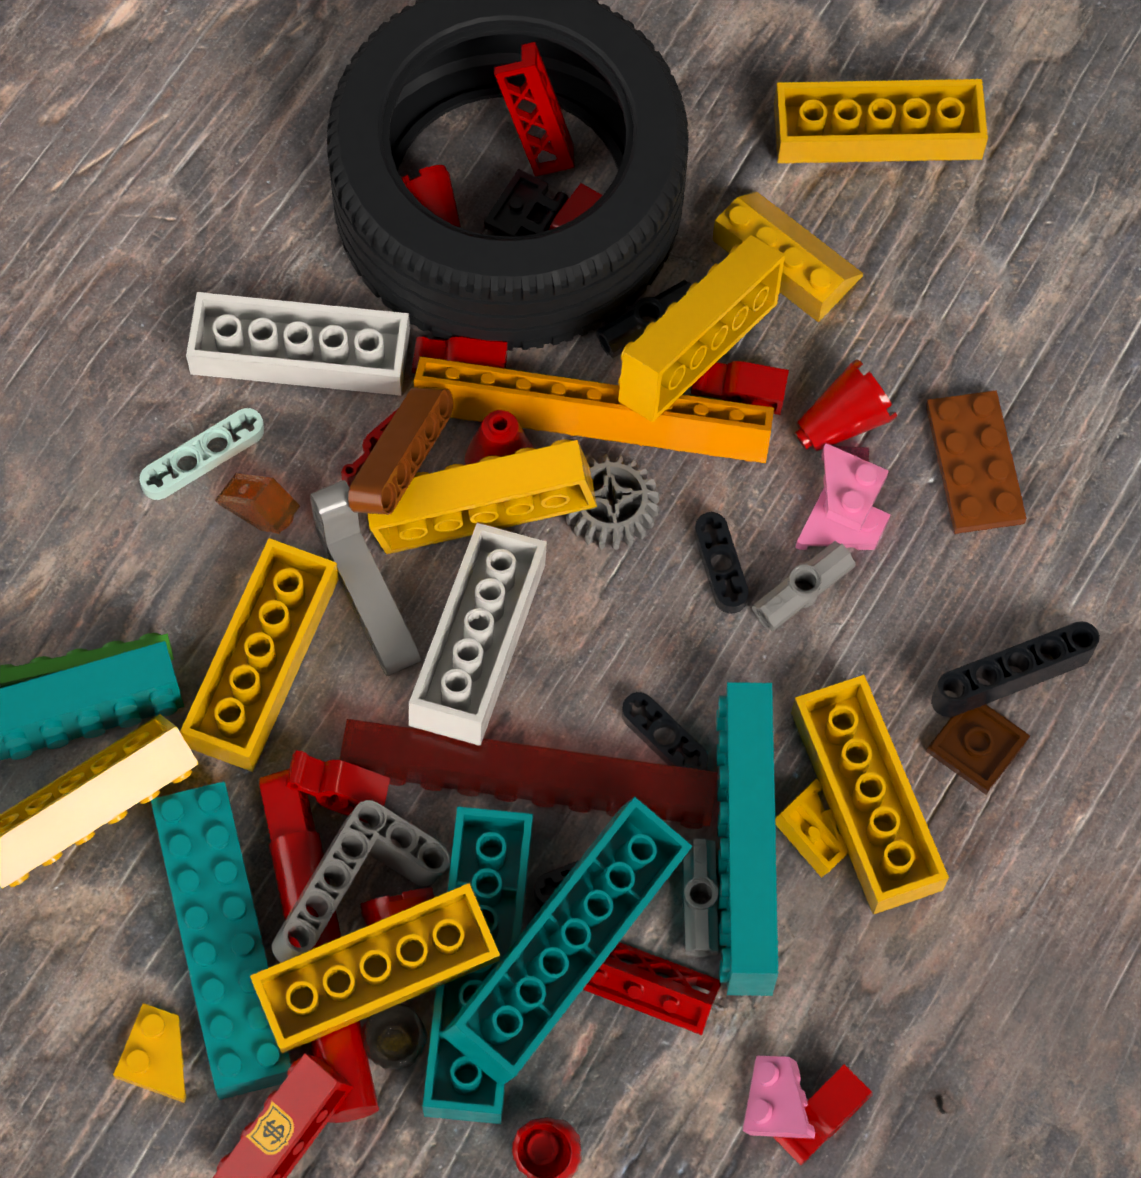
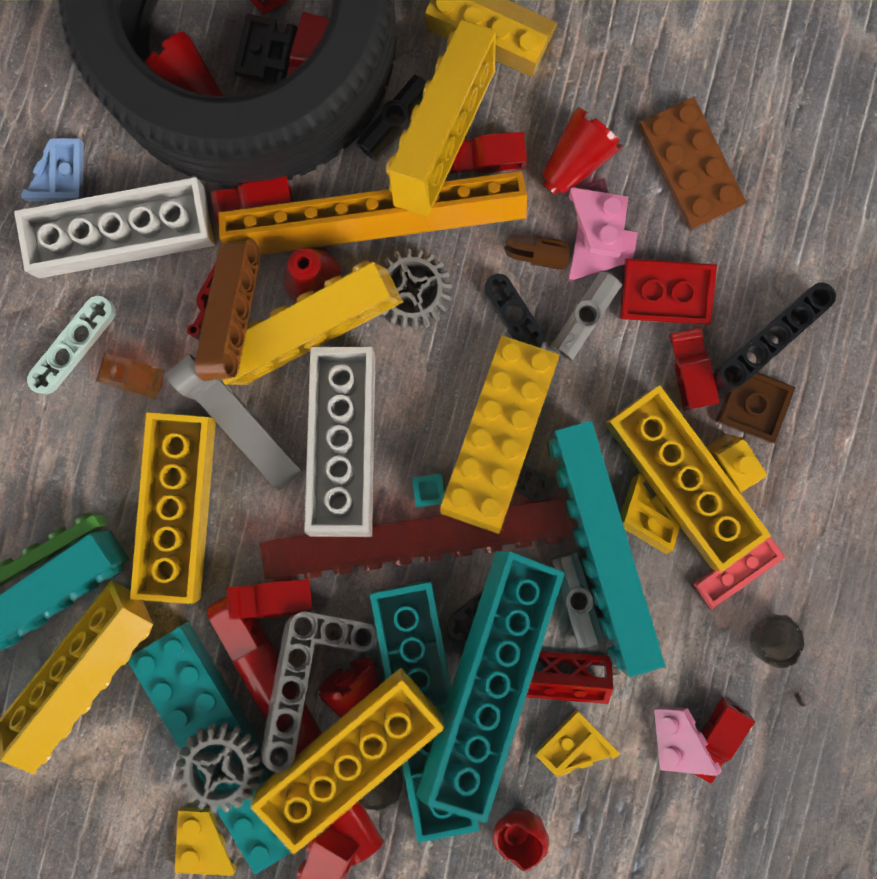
camera: 15 degrees left, 20 degrees up
(211, 953) = (208, 764): none -> light grey gear
(253, 270) = (59, 172): none -> light blue wing
(561, 725) = (428, 490): none -> teal plate
(646, 1070) = (574, 746): none -> yellow wing
(662, 679) = (499, 434): none -> yellow brick
(775, 505) = (538, 250): none -> reddish brown arm
(905, 926) = (717, 586): none -> coral tile
(907, 587) = (667, 291): none -> red tile
(913, 682) = (693, 370): none -> red piece
(927, 1012) = (777, 640): none -> clear smoke hair
(936, 796) = (737, 461): none -> yellow torso

